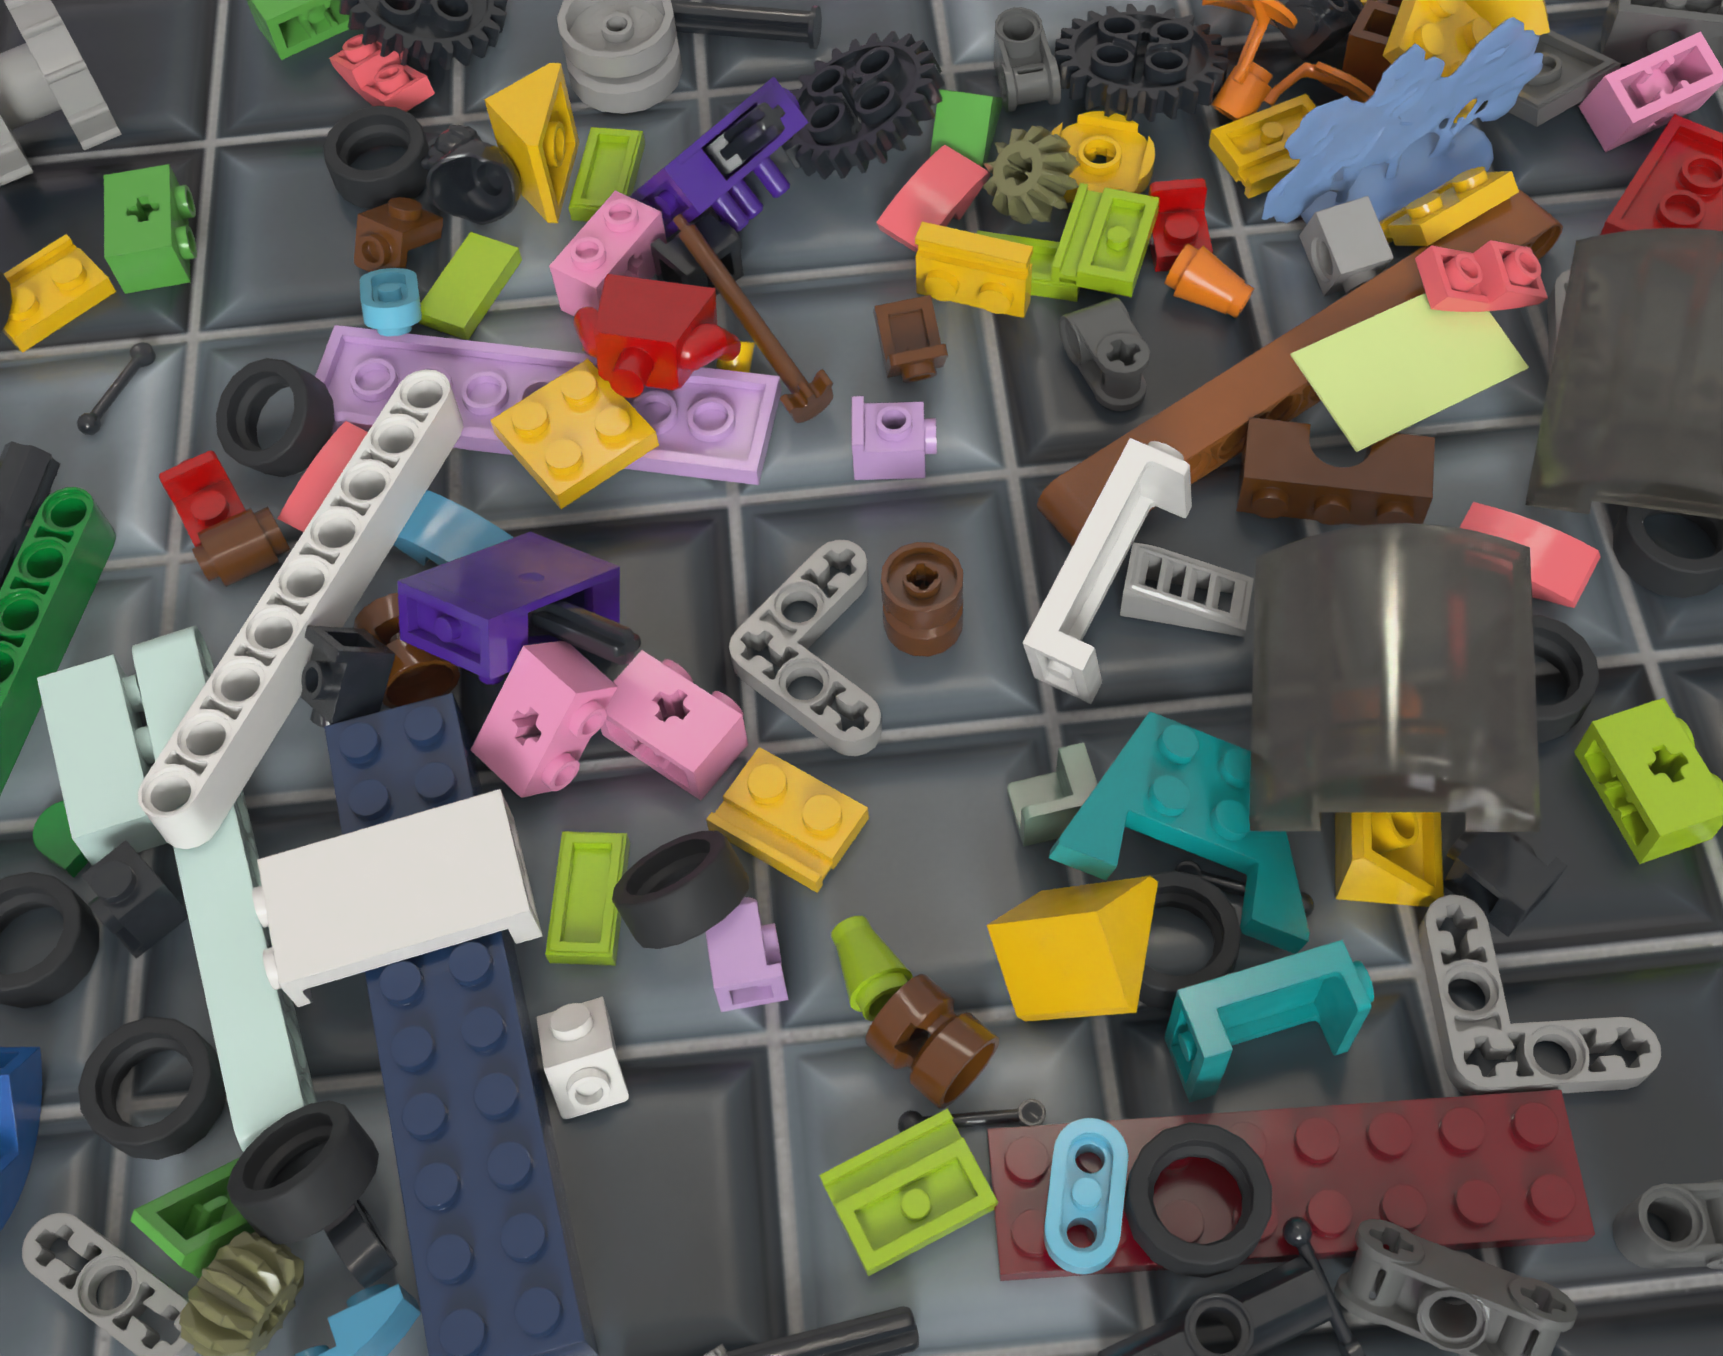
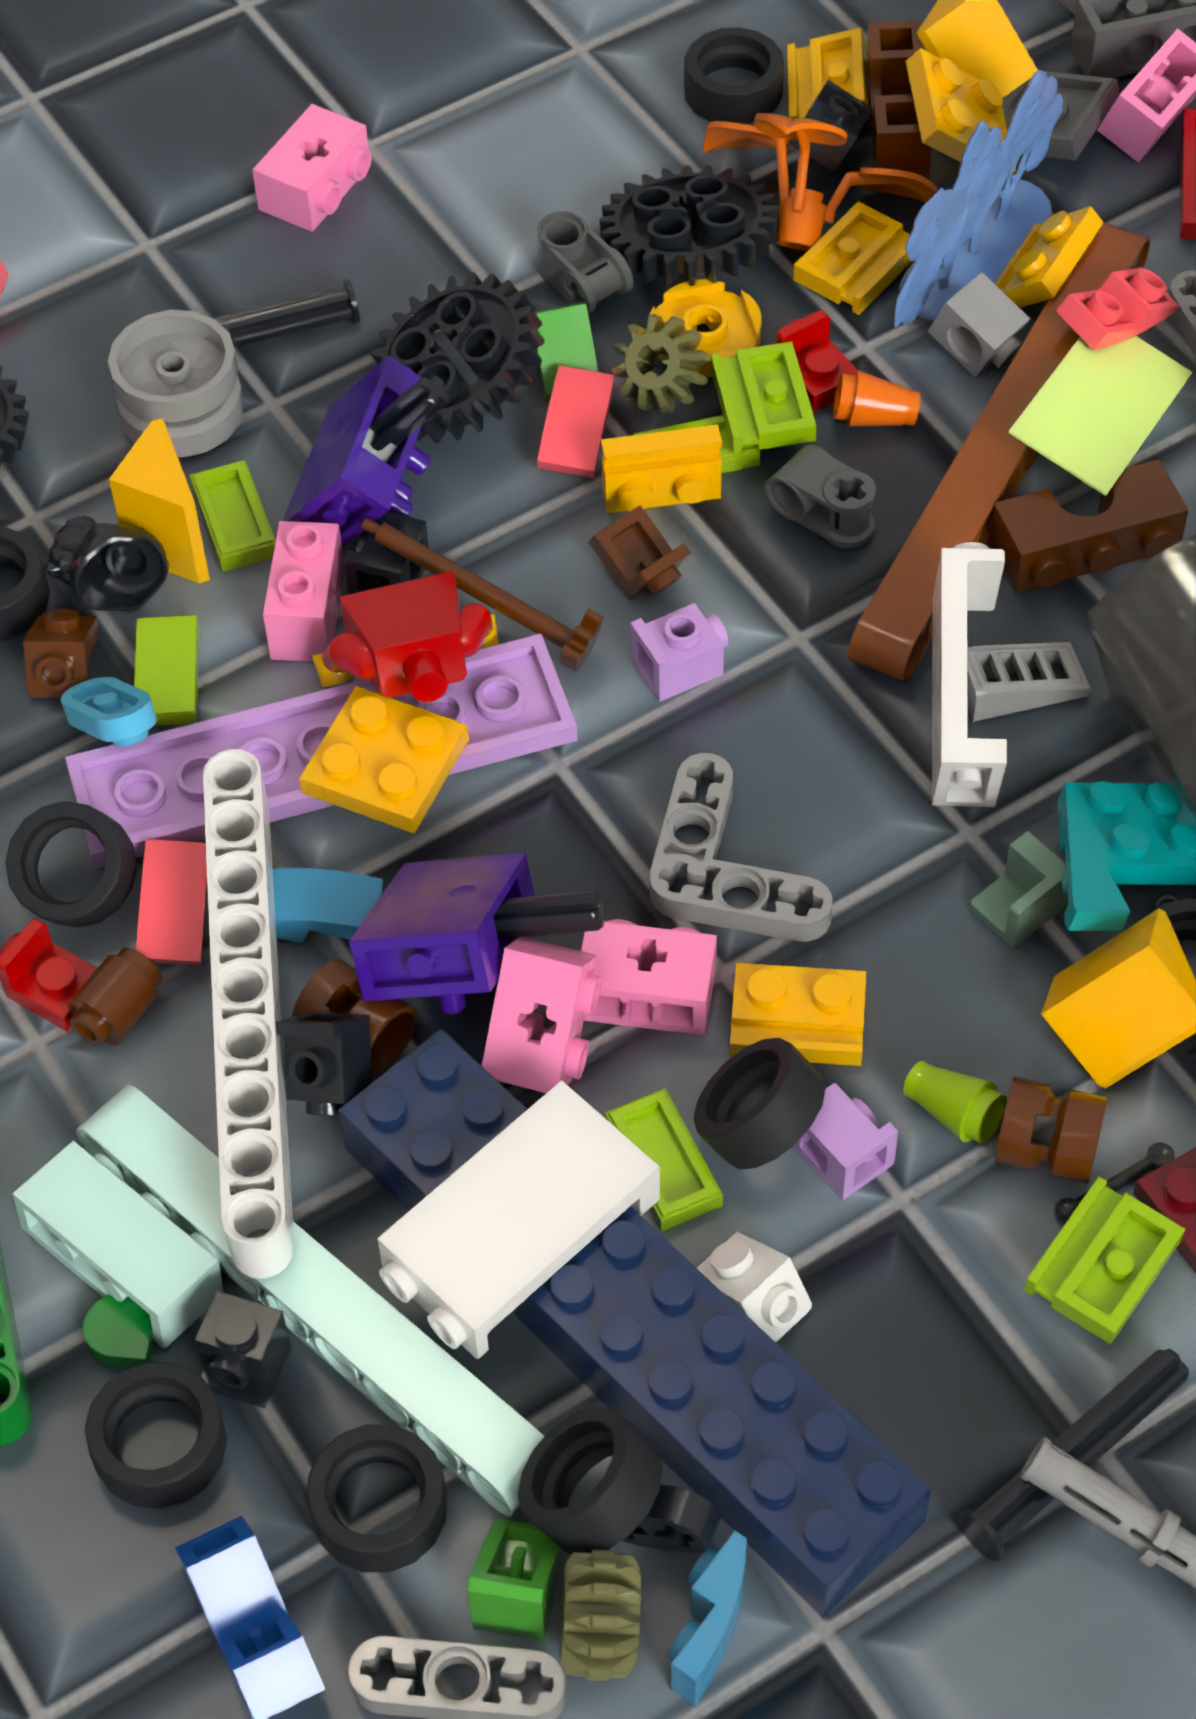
camera: 30 degrees left, 5 degrees down
(922, 598) = (805, 773): reddish brown wheel -> none

